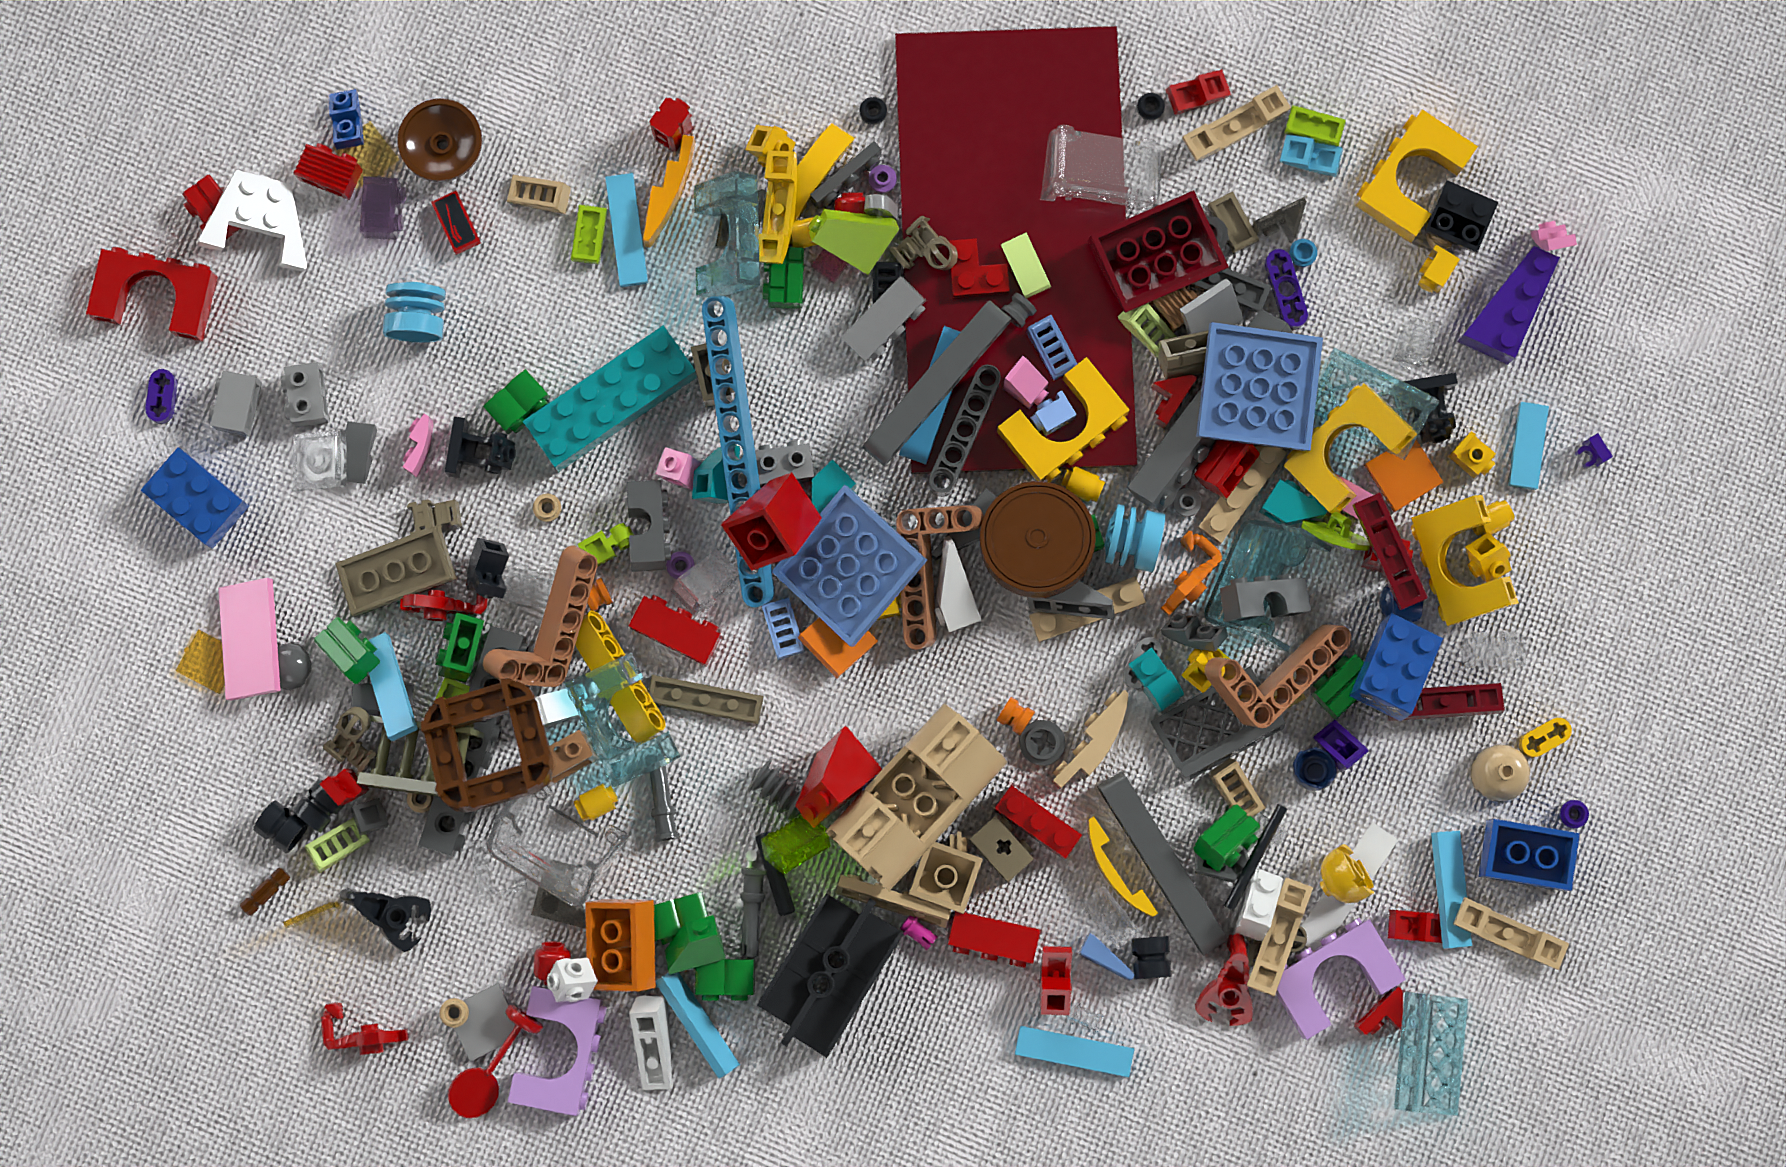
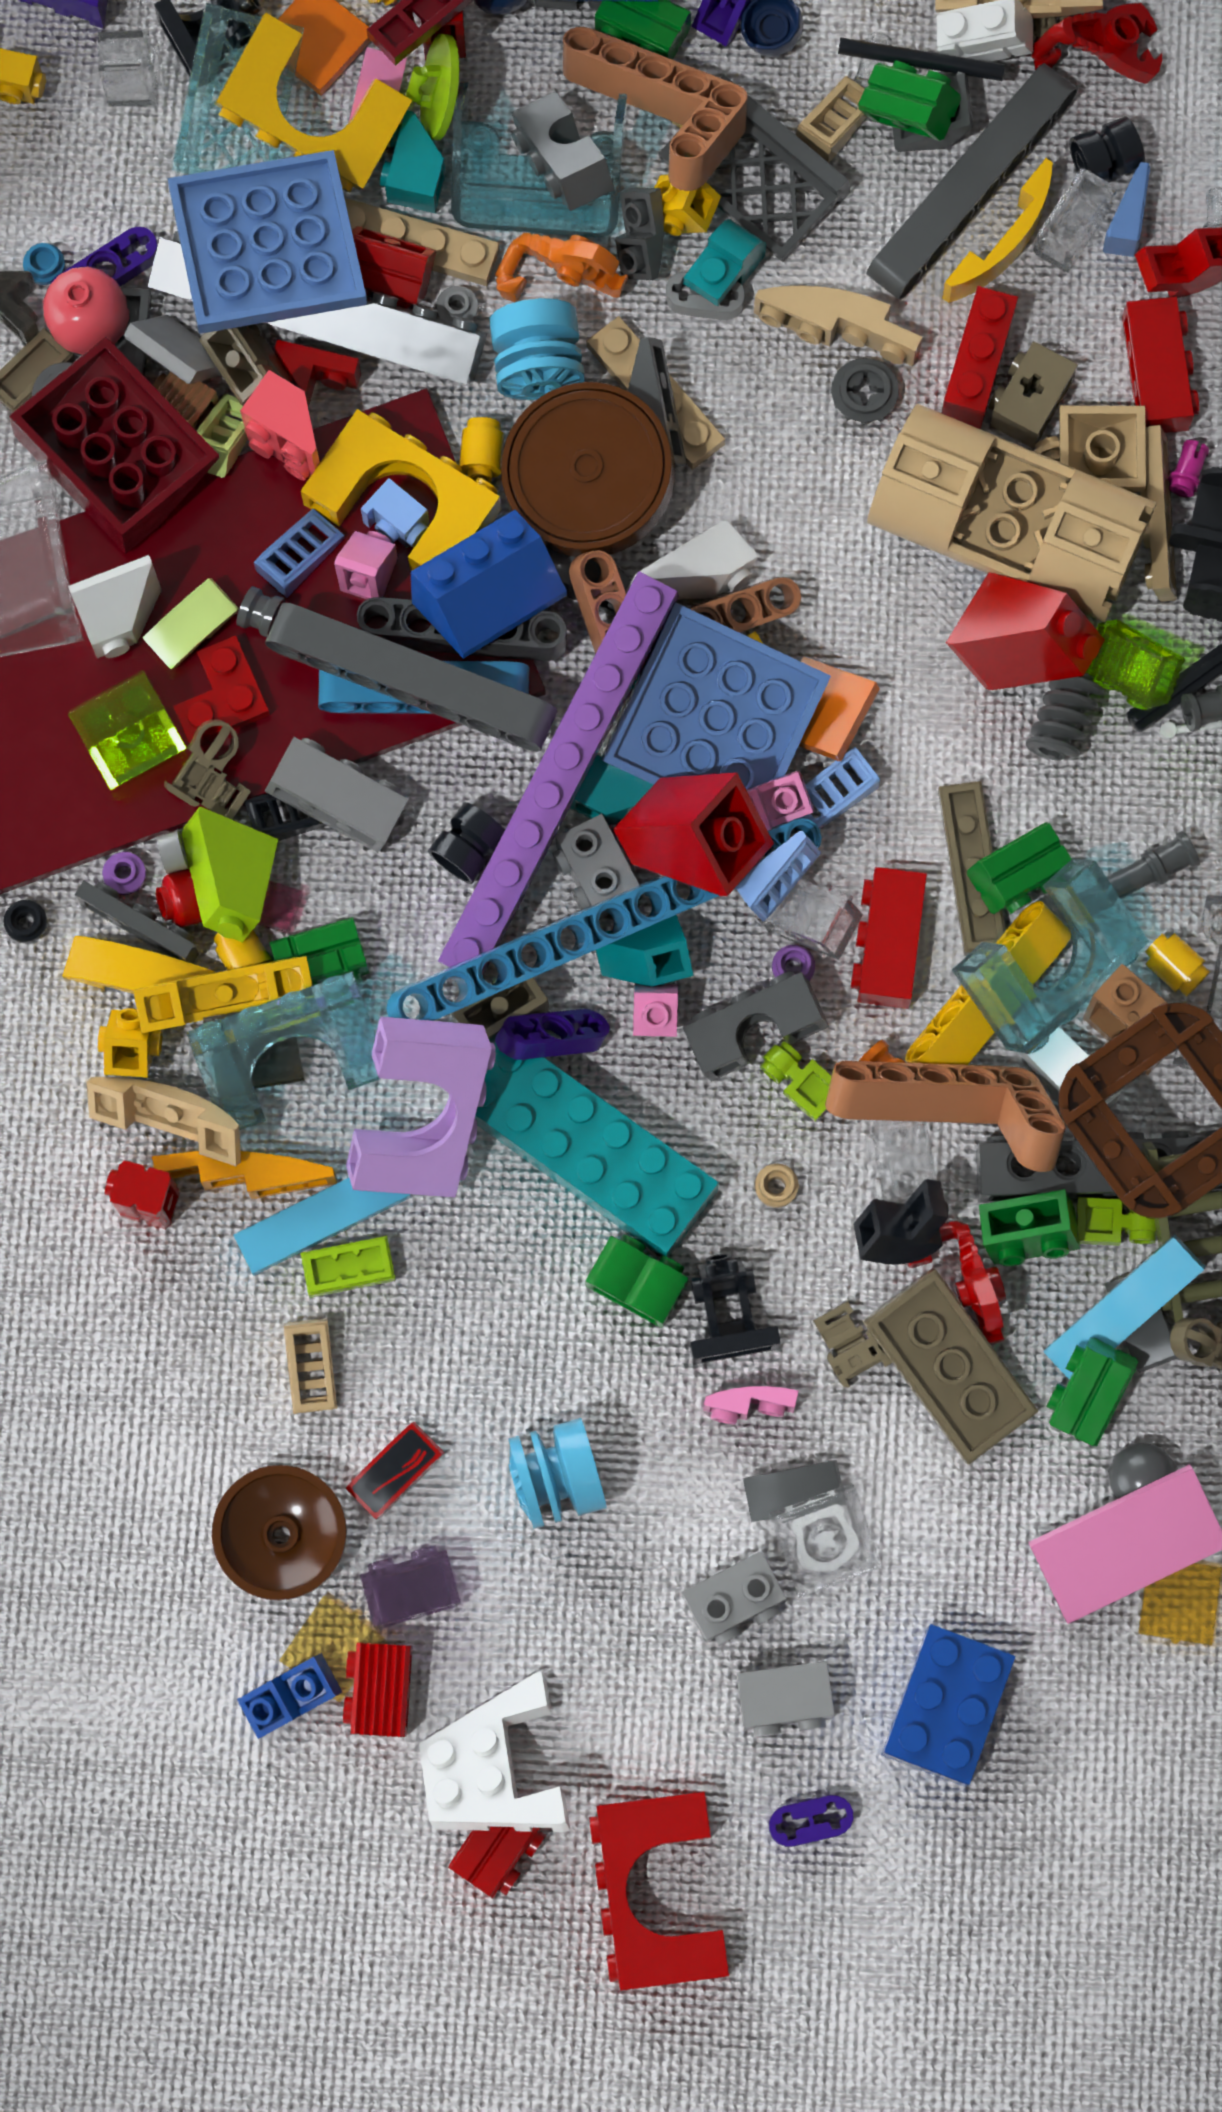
camera: 105 degrees left, 5 degrees down
(634, 299) = (434, 1156): none -> lavender arch
(677, 389) = (525, 1037): none -> dark purple beam
(688, 724) = (1018, 869): none -> green brick
(731, 566) = (777, 874): none -> light blue slope
(737, 134) = (167, 1108): none -> tan slope
(784, 584) = (781, 800): none -> bright pink slope
(826, 390) = (466, 845): none -> black wheel
(843, 455) = (561, 771): none -> medium lavender brick
(969, 203) = (127, 729): none -> clear neon green slope
(980, 450) = (487, 584): none -> blue slope
(1015, 716) = (841, 435): orange wheel -> none
(1047, 220) = (117, 605): none -> white slope
(1134, 362) = (281, 425): none -> coral slope
(1257, 265) = (84, 309): none -> coral cylinder

